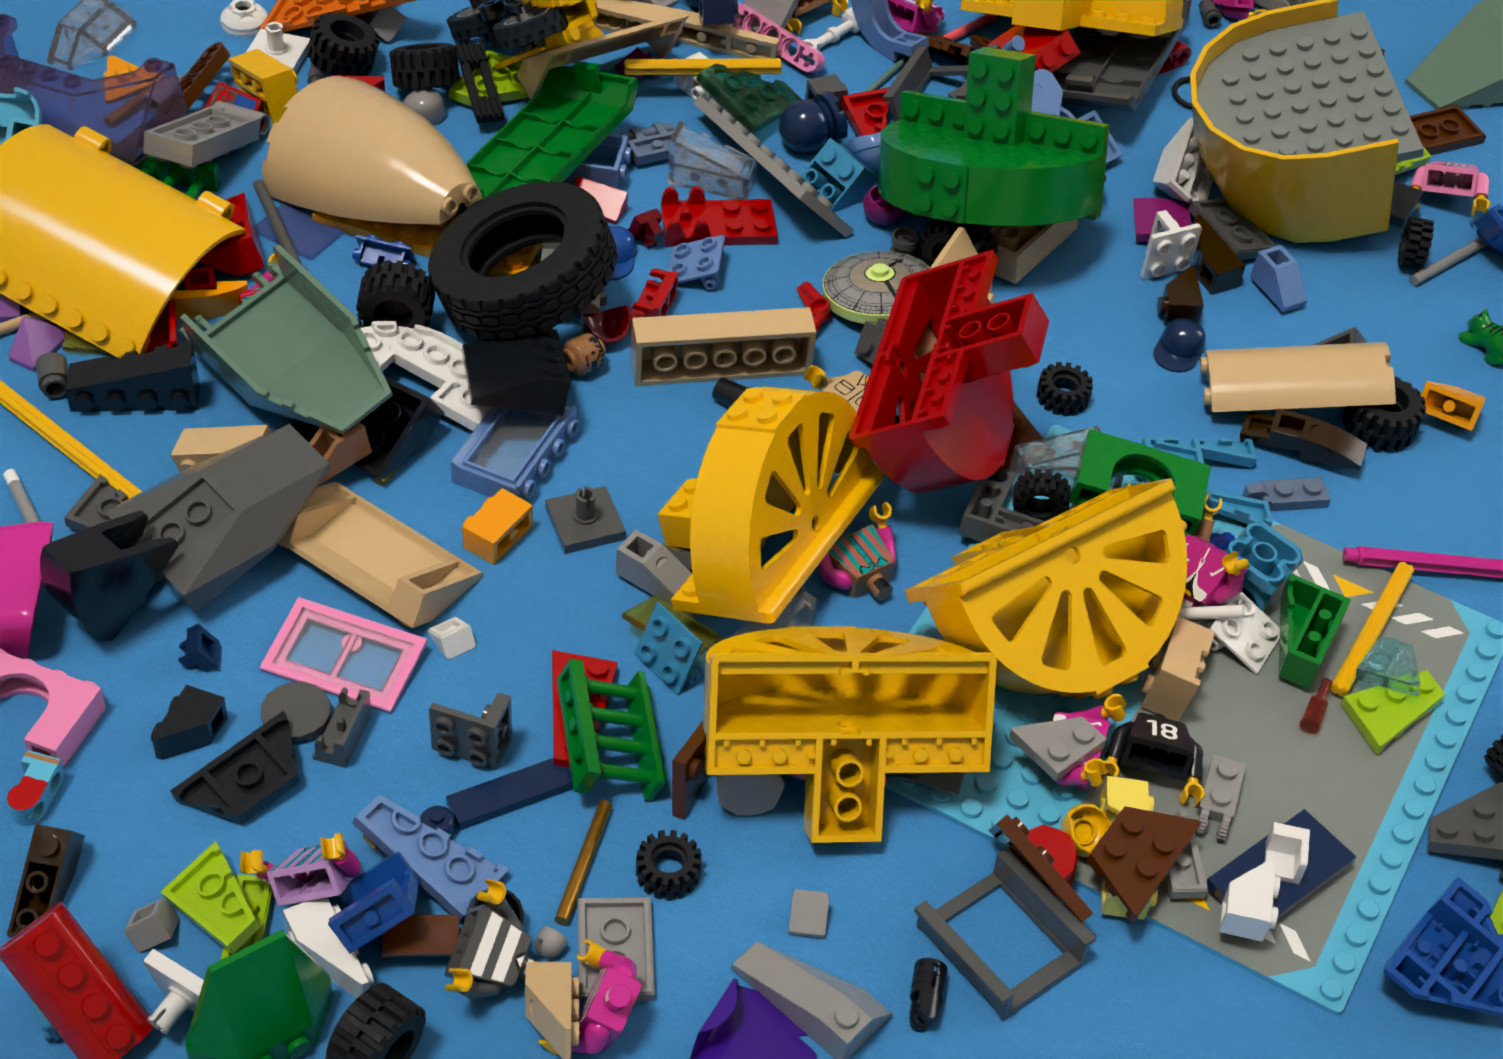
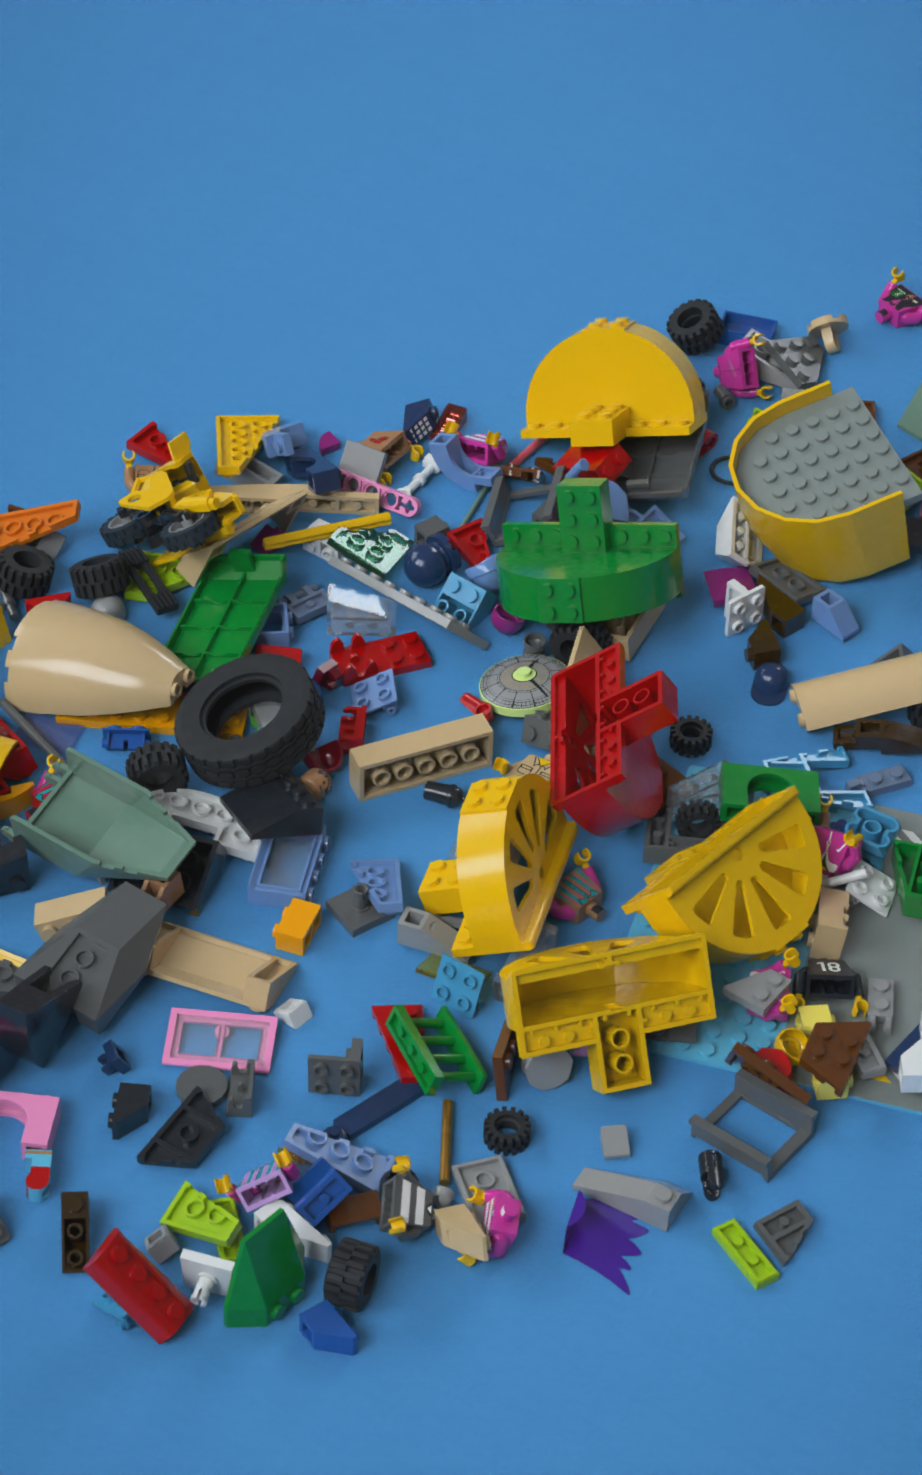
camera: 10 degrees left, 5 degrees down
(619, 493) = (383, 883): none -> medium blue wing

